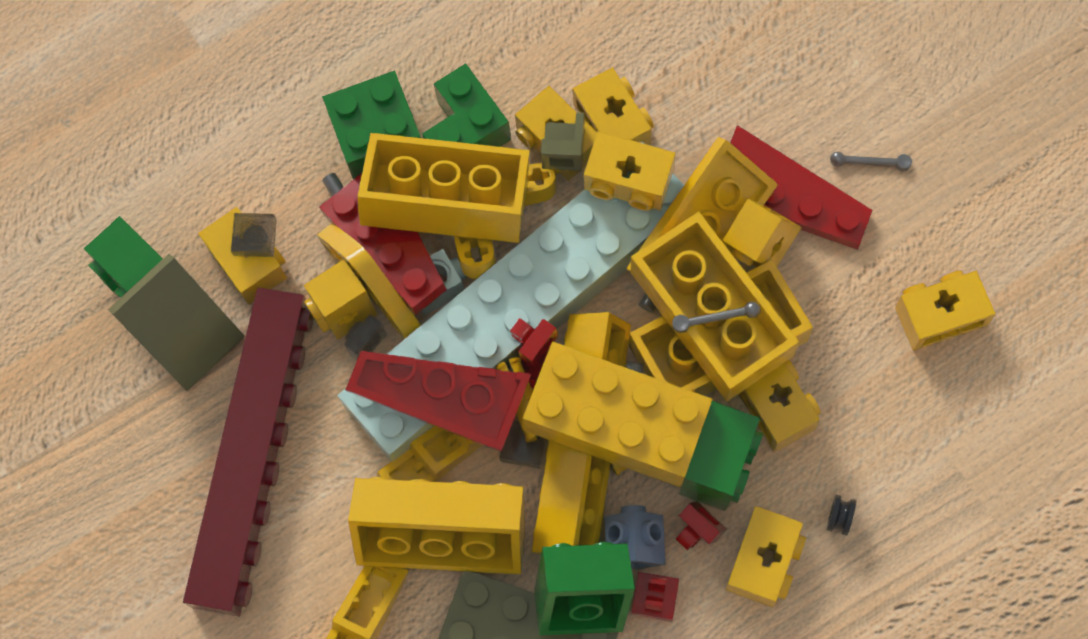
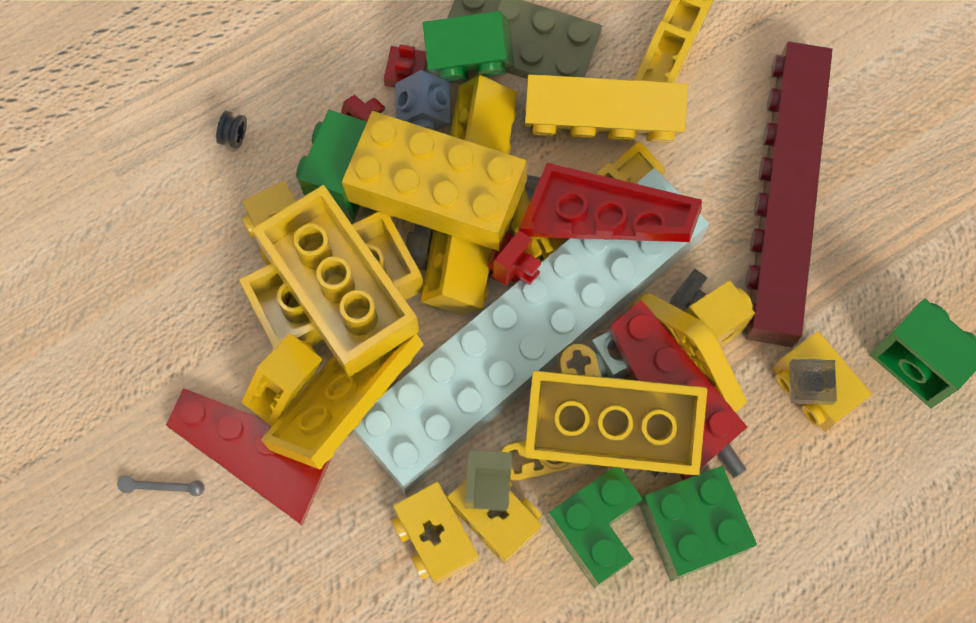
camera: 170 degrees right, 0 degrees up
(177, 322) = (880, 294): olive tile -> none
(614, 157) = (432, 450): yellow brick -> none
(682, 323) = (367, 245): flat silver hinge -> none
(765, 532) = (304, 92): yellow brick -> none
(929, 325) = (87, 313): yellow brick -> none

